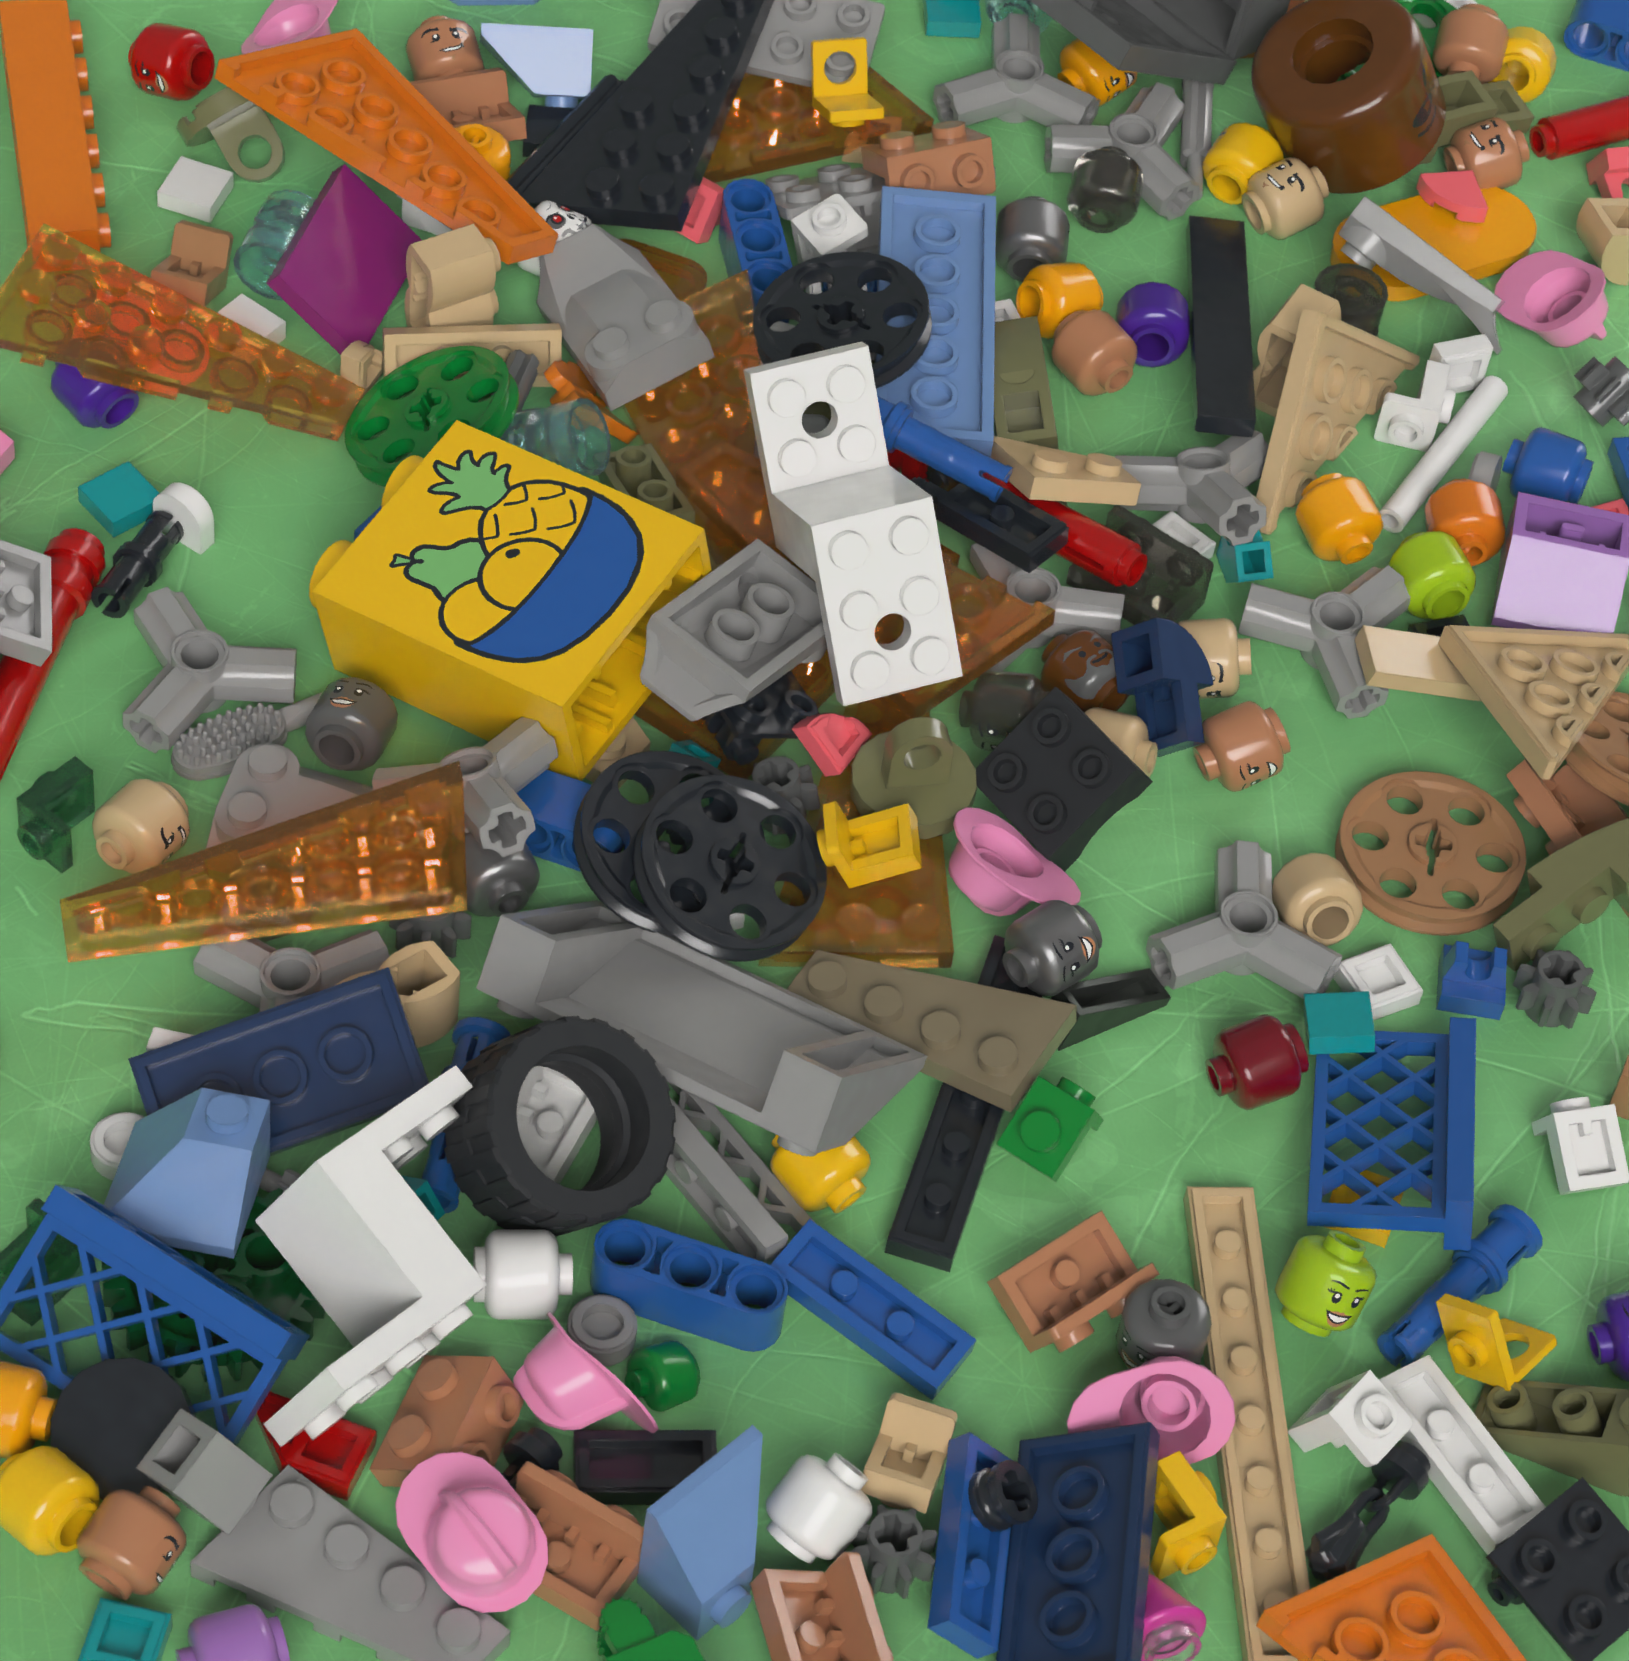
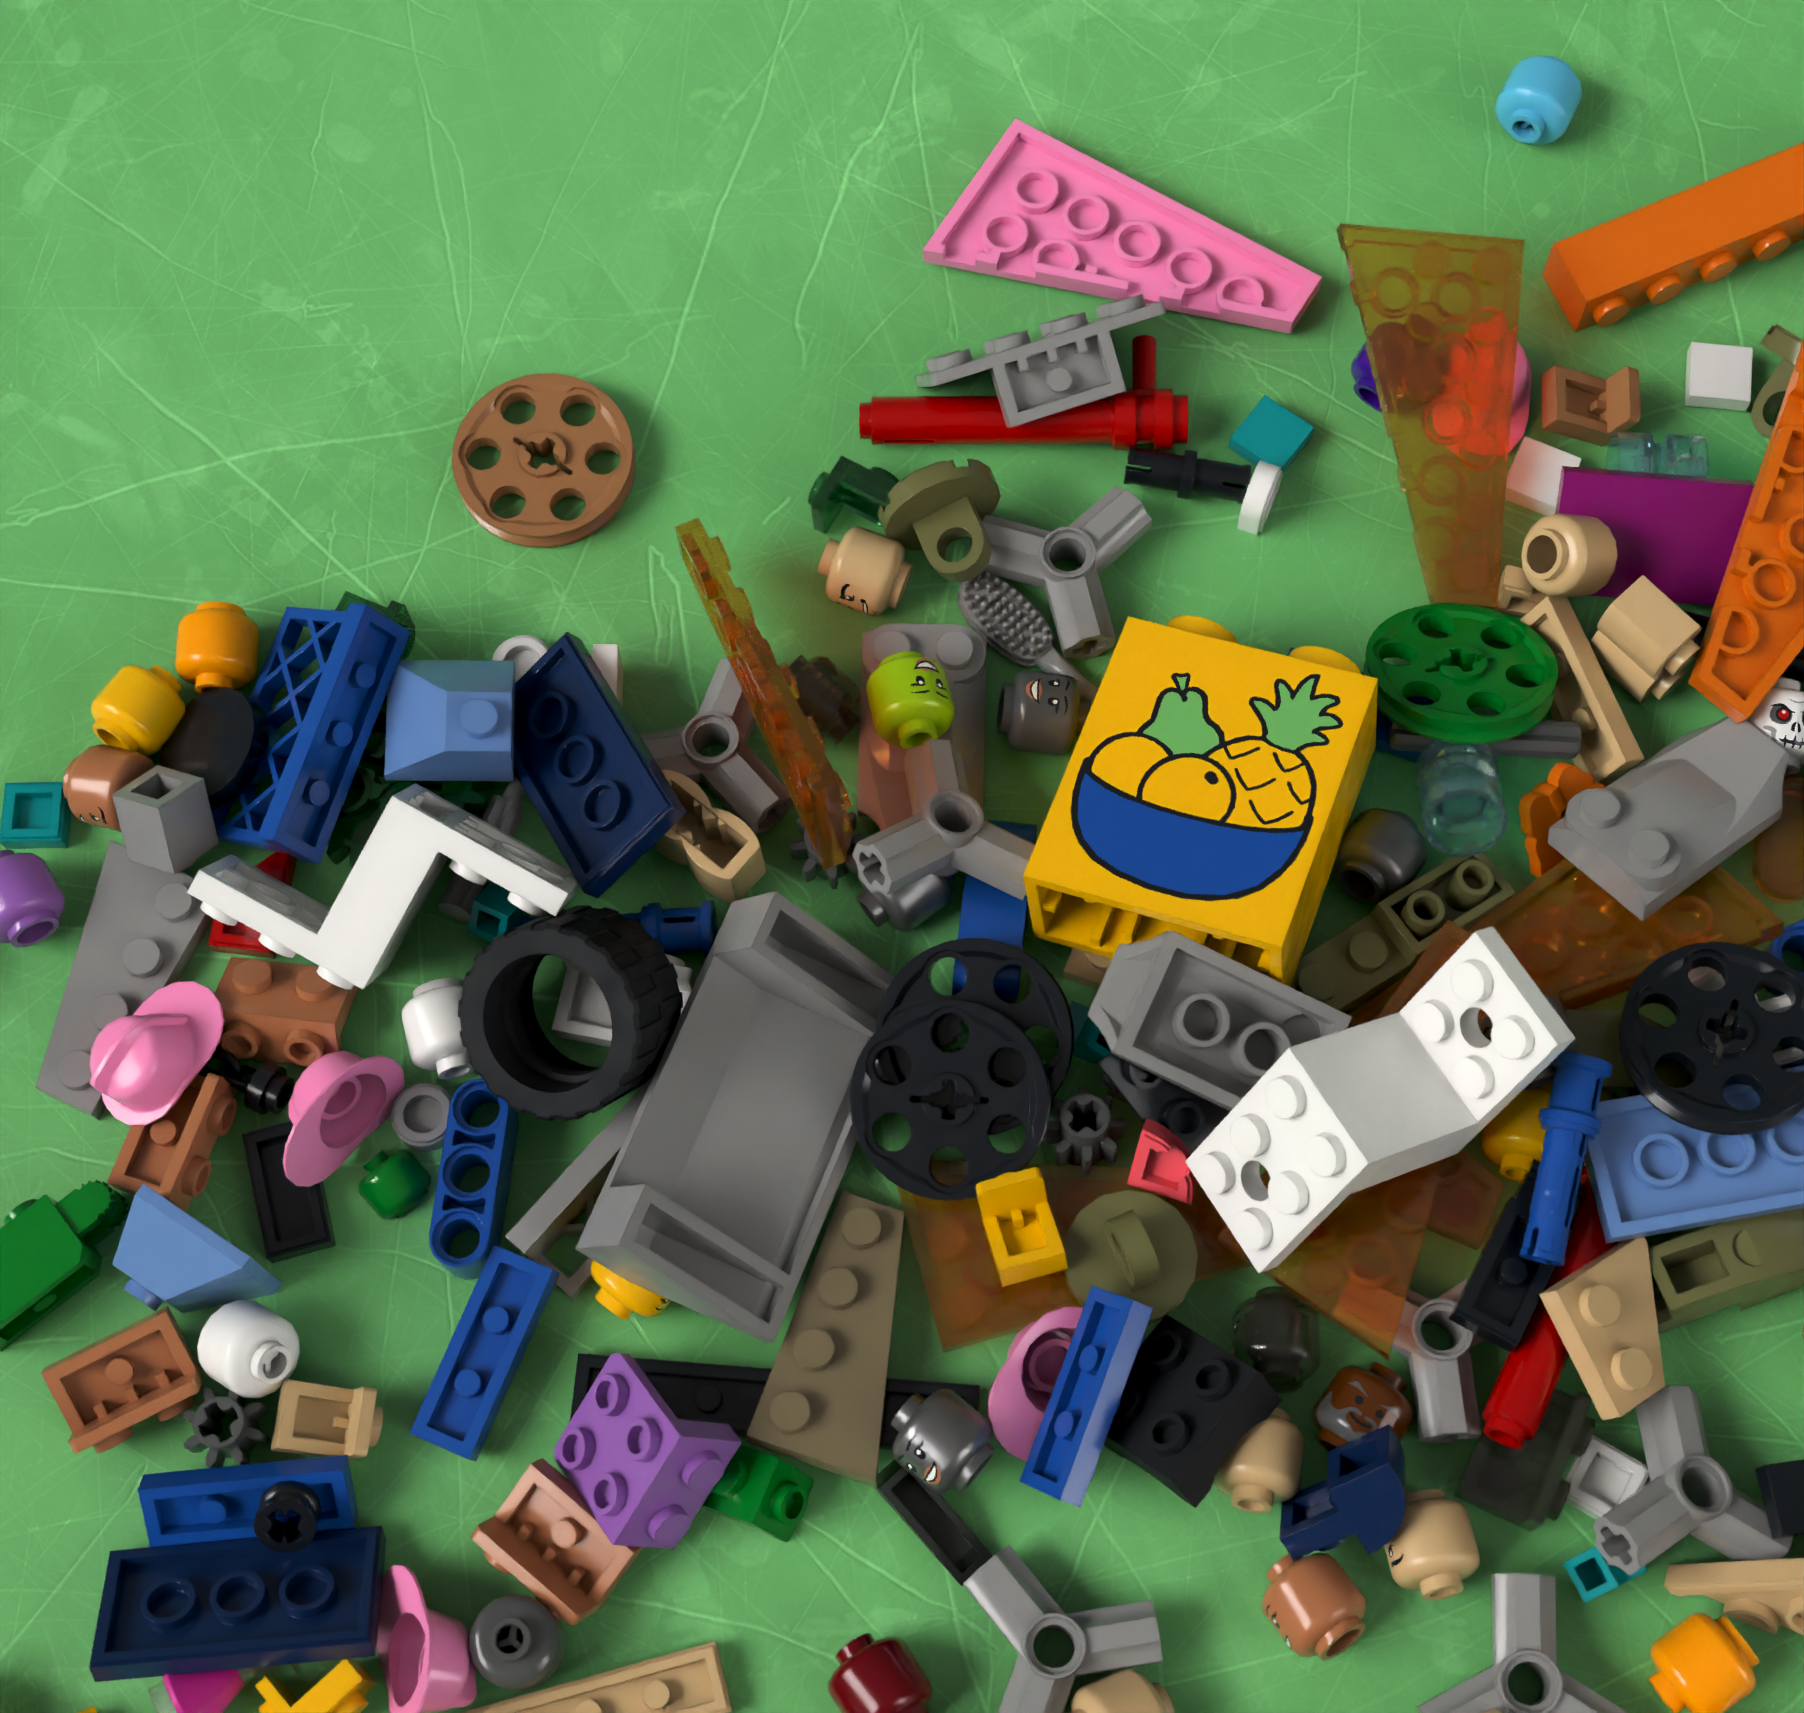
camera: 90 degrees right, 20 degrees up
(119, 727) = (939, 507): none -> olive tile
(319, 779) = (910, 699): none -> lime head
(357, 302) = (1569, 555): none -> tan head
(1004, 1189) = (637, 1461): none -> medium lavender bracket
(1039, 825) = (1086, 1396): none -> blue plate

